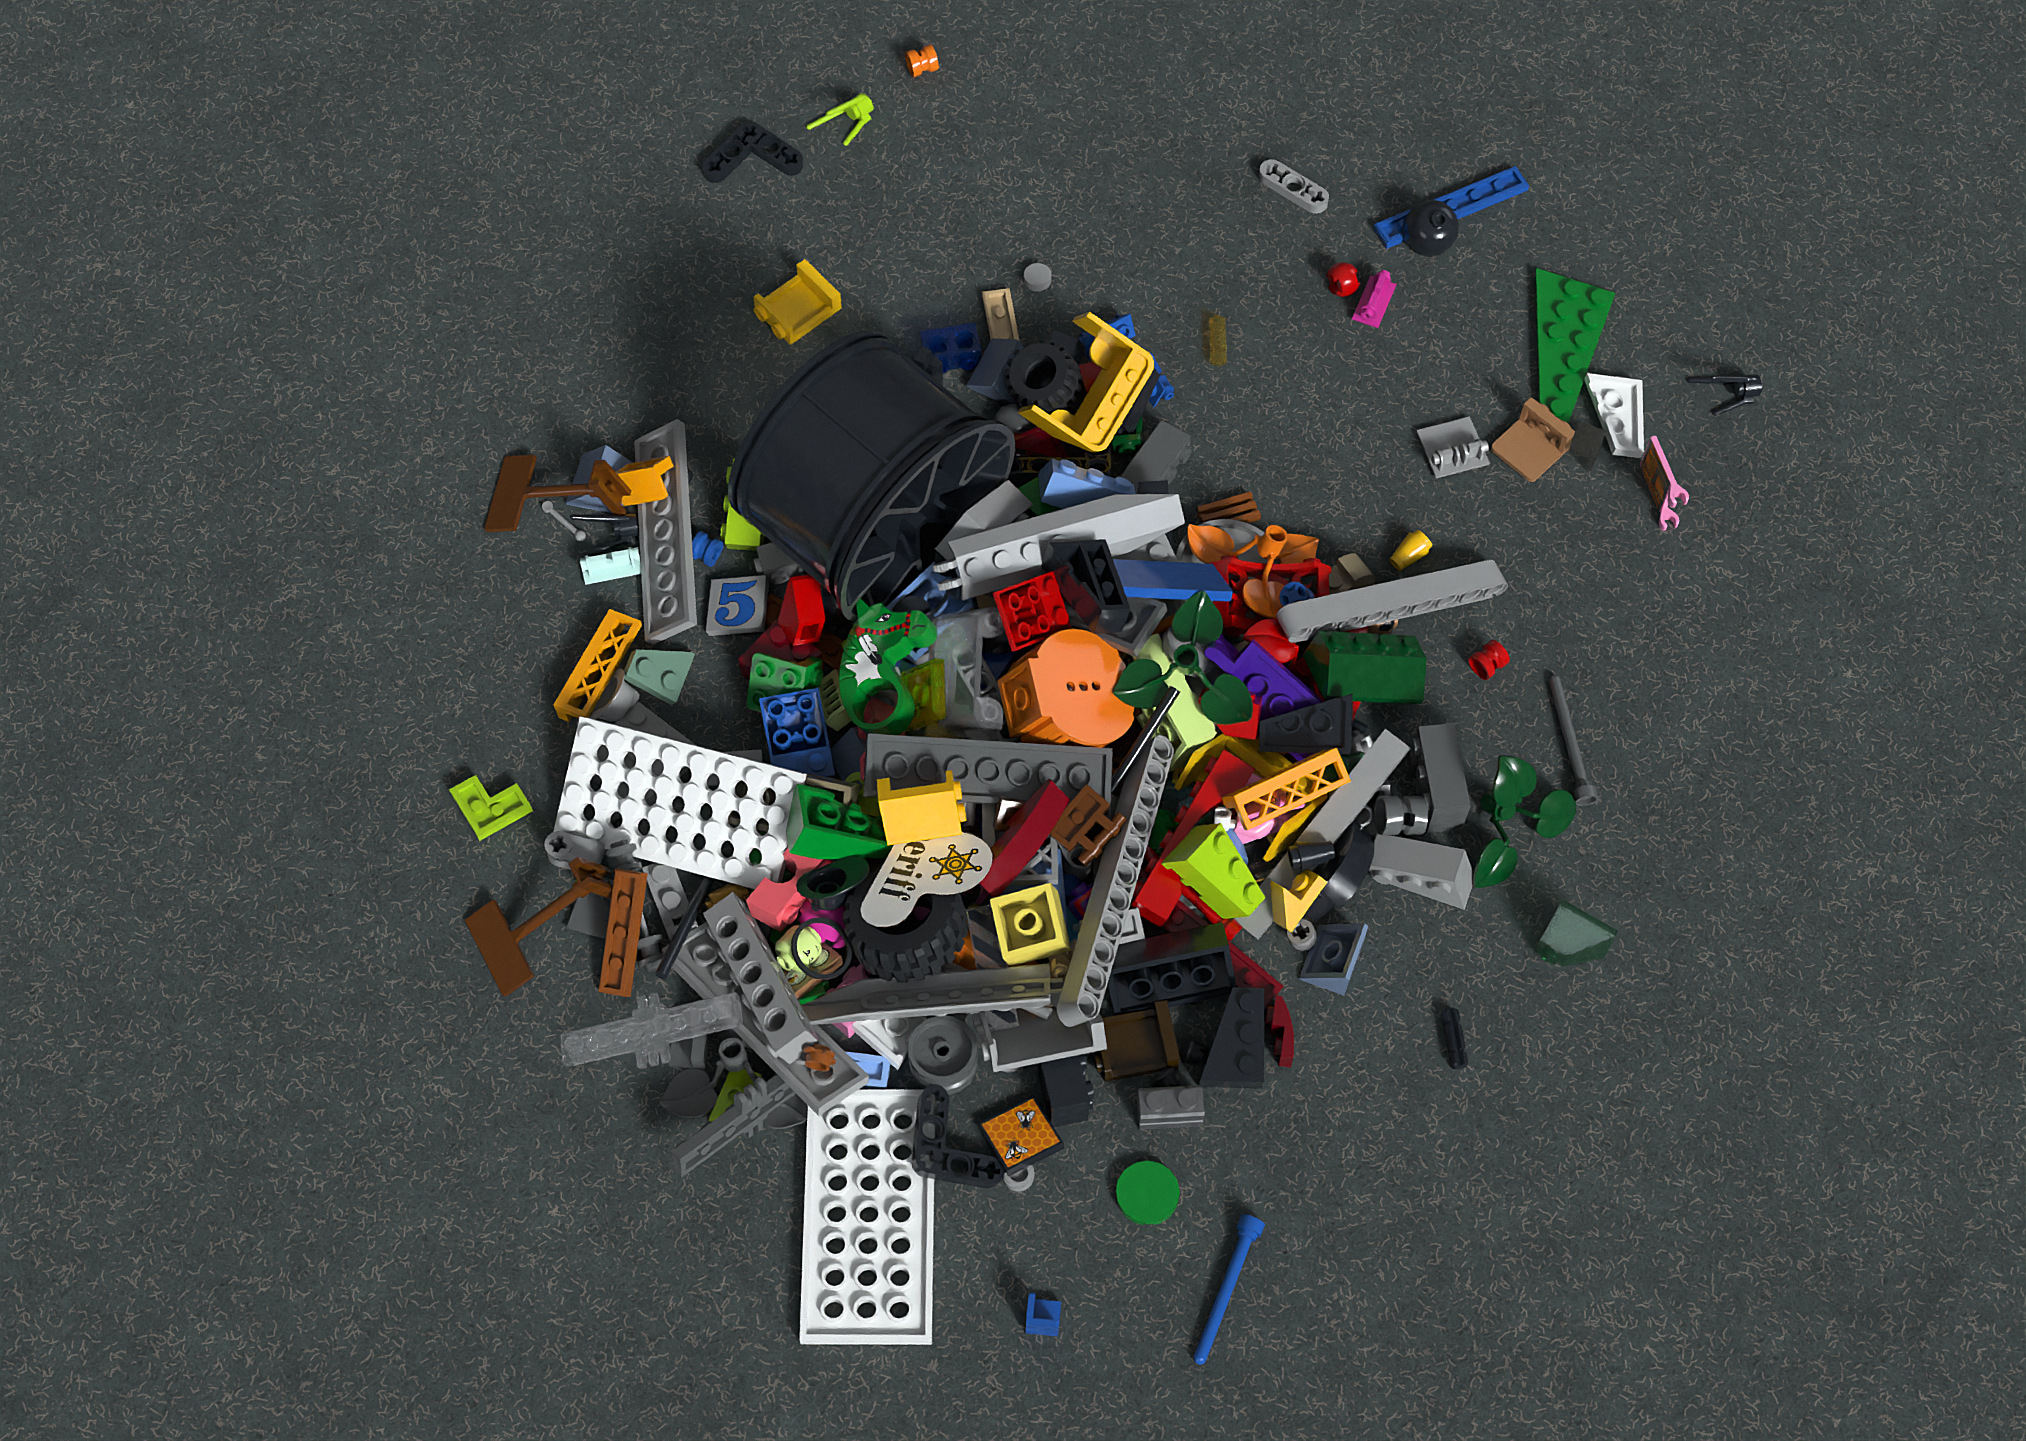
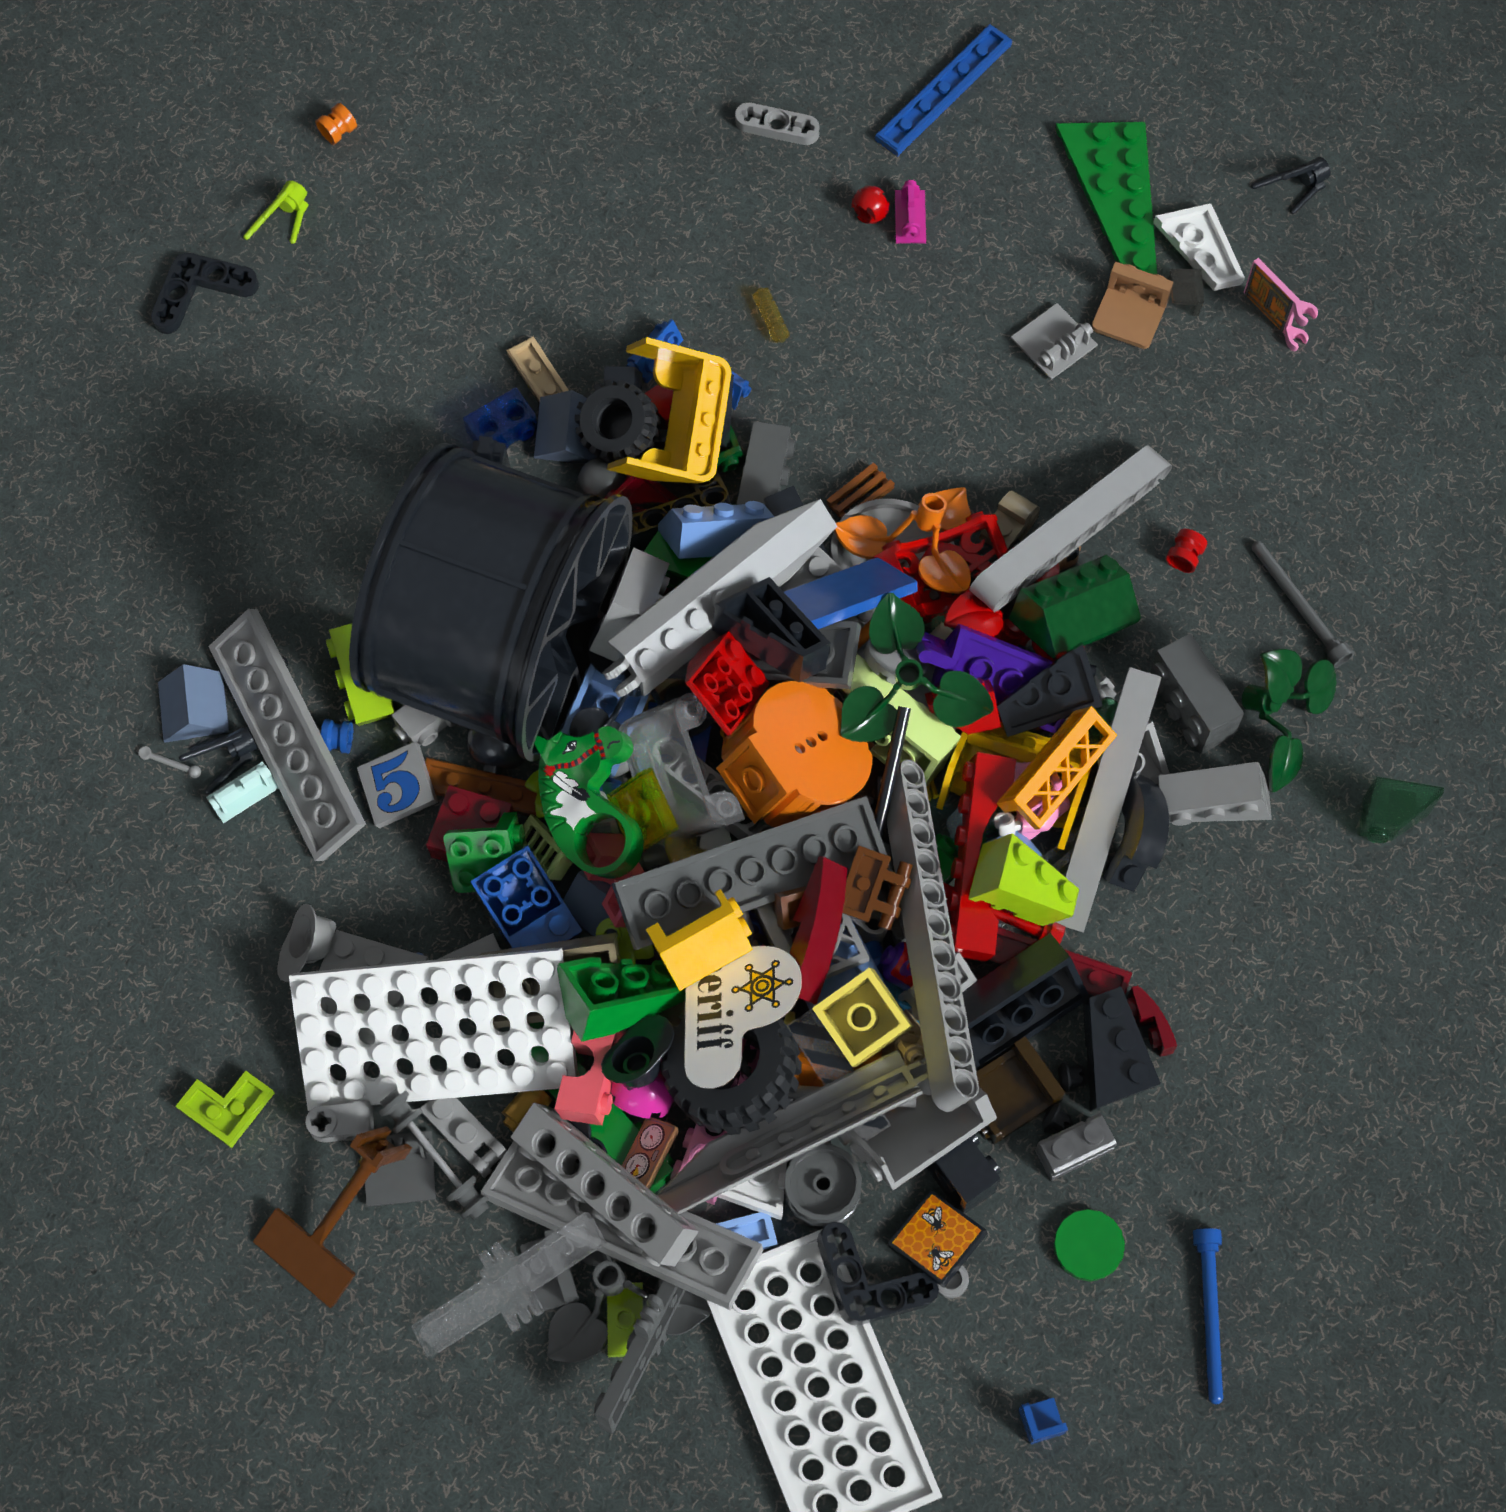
camera: 20 degrees left, 5 degrees up
(514, 489) = (101, 749): reddish brown piece -> none
(594, 660) = (270, 907): light orange fence -> none
(623, 932) = (433, 1190): dark orange tile -> none
(645, 480) = (238, 688): light orange panel -> none
(659, 672) = (346, 890): sand green wing -> none
(684, 927) = (495, 1159): black bar -> none
(798, 304) = (319, 433): yellow panel -> none
(800, 964) = (625, 1133): black piece -> none
(802, 611) = (475, 769): red slope -> none
(808, 948) = (628, 1135): yellowish green head -> none
(819, 1057) = (705, 1248): dark orange plate -> none
(1037, 277) = (556, 313): light grey tile -> none
(1291, 905) = (1108, 886): yellow slope -> none
(1294, 592) = (972, 560): blue wheel -> none
(1309, 854) = (1105, 826): black cone -> none
(1309, 941) = (1124, 920): light grey bush -> none
(1334, 956) = (1169, 920): sand blue slope -> none
(1403, 815) = (1175, 749): dark grey wheel -> none
(1412, 548) = (1060, 464): yellow cone -> none
(1430, 228) = (935, 119): black cylinder -> none
(1454, 1038) = (1321, 958): black axle -> none

